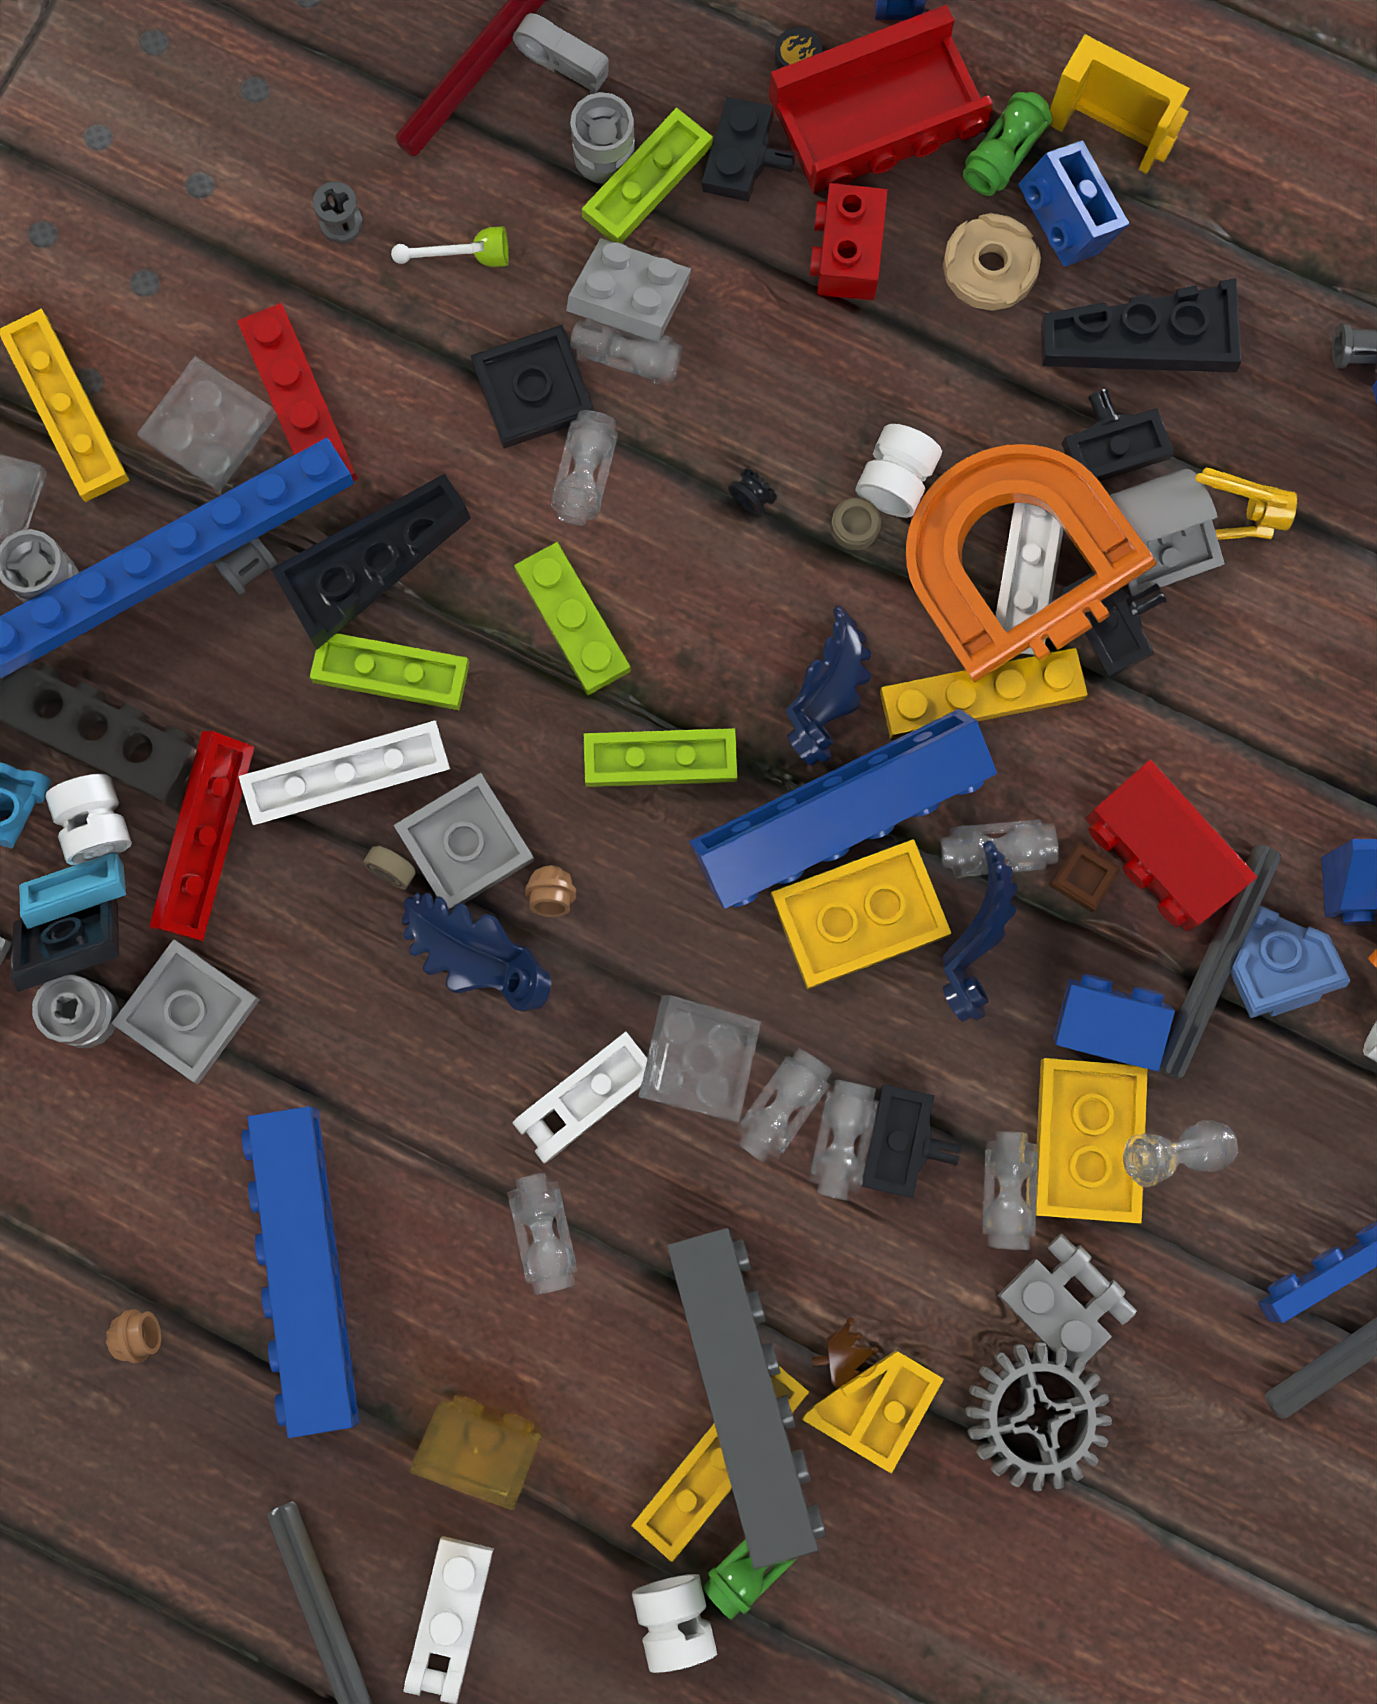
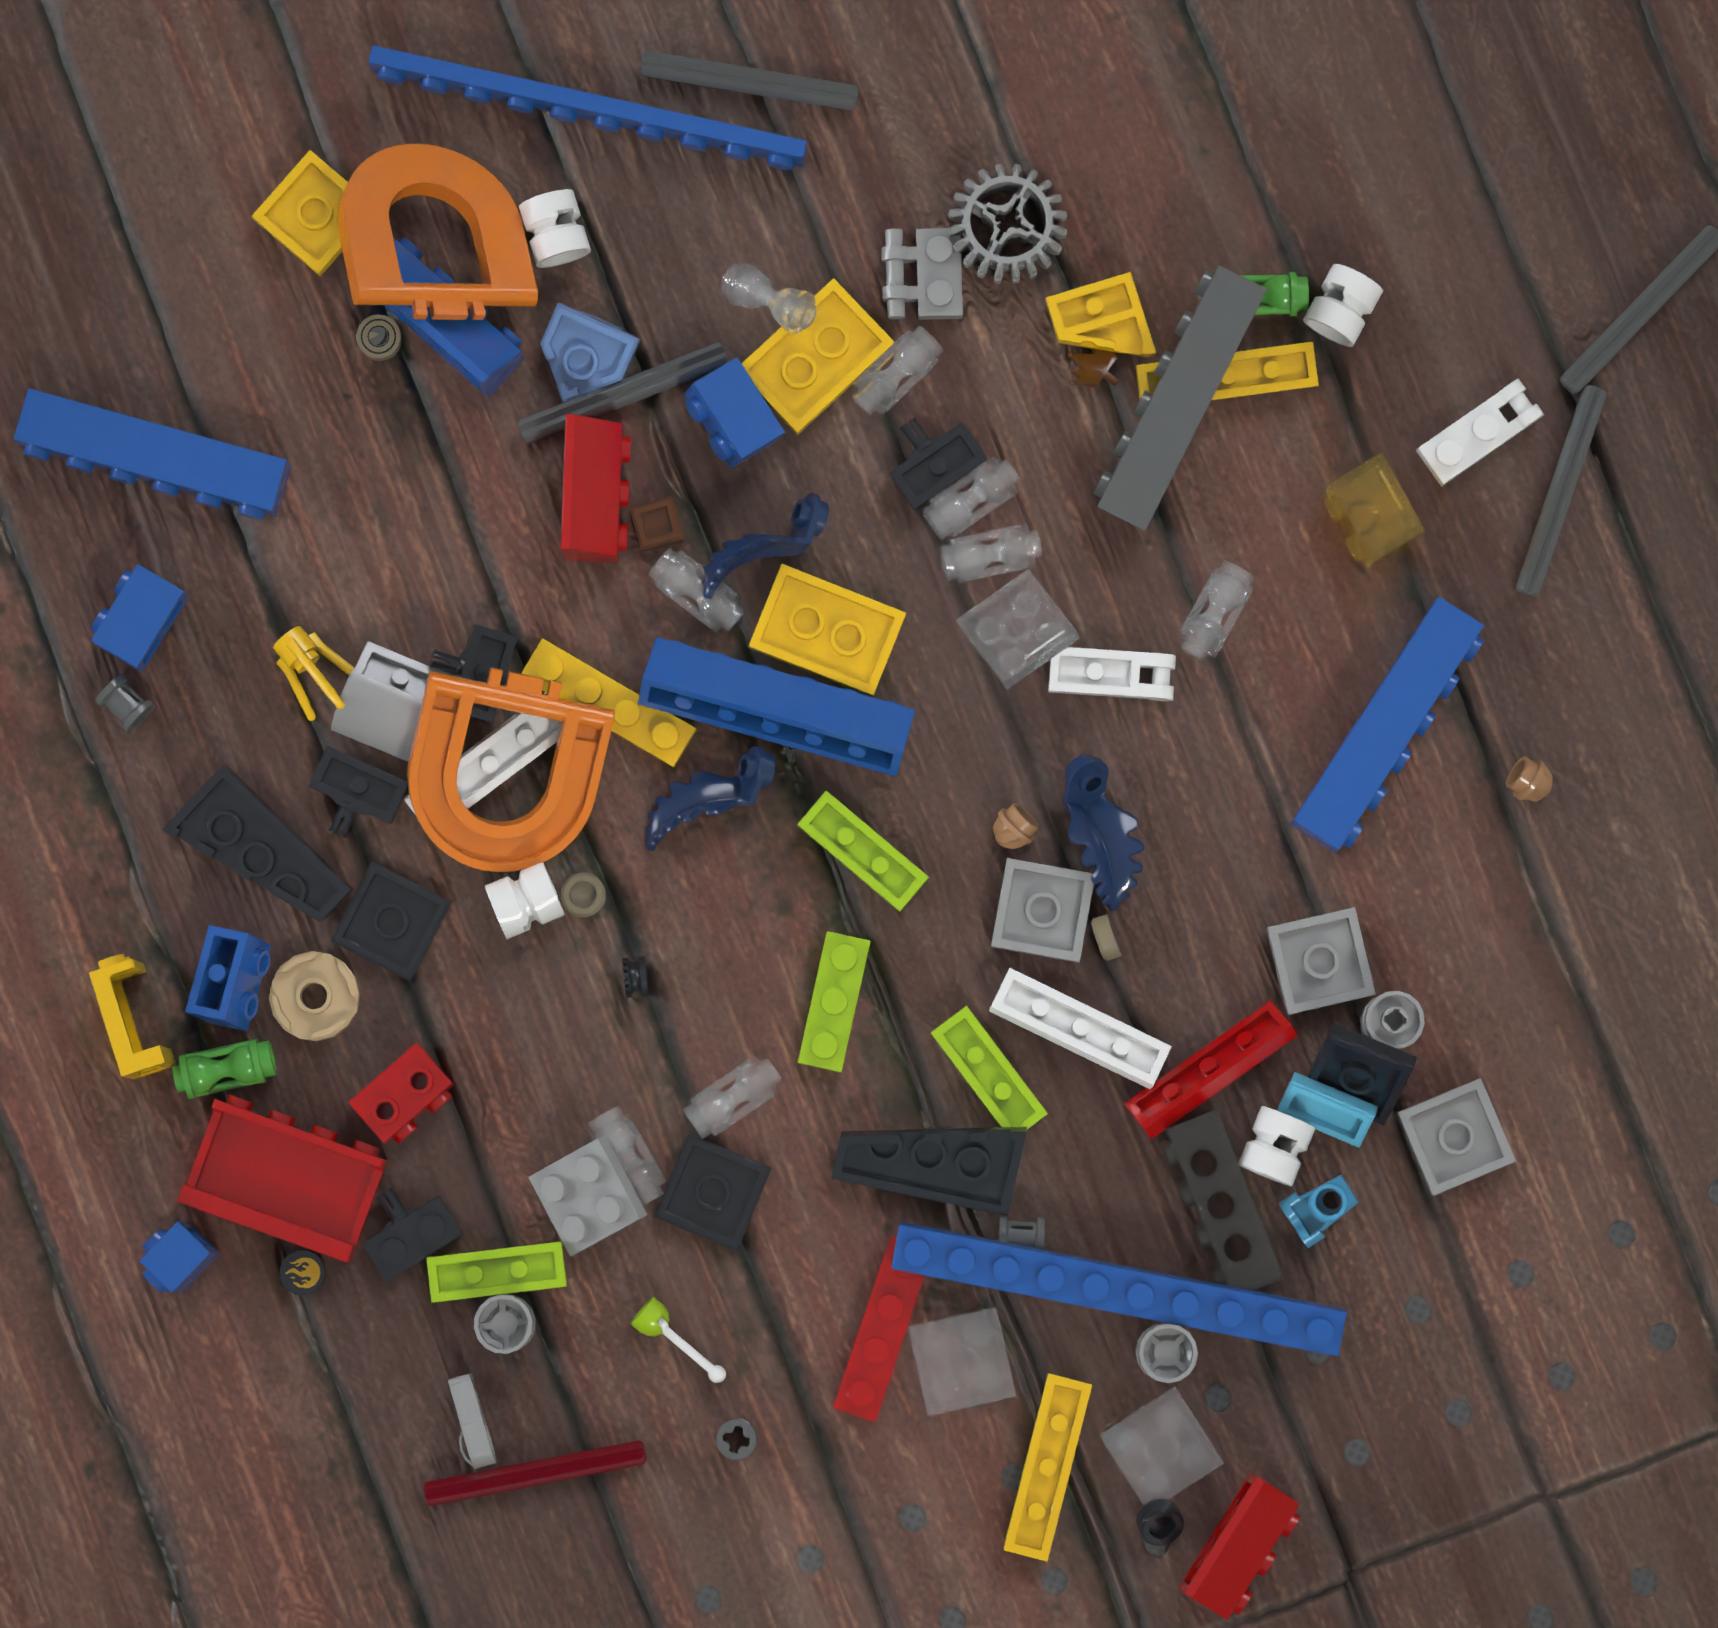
camera: 140 degrees left, 5 degrees up
(987, 370) = (391, 921): none -> black tile

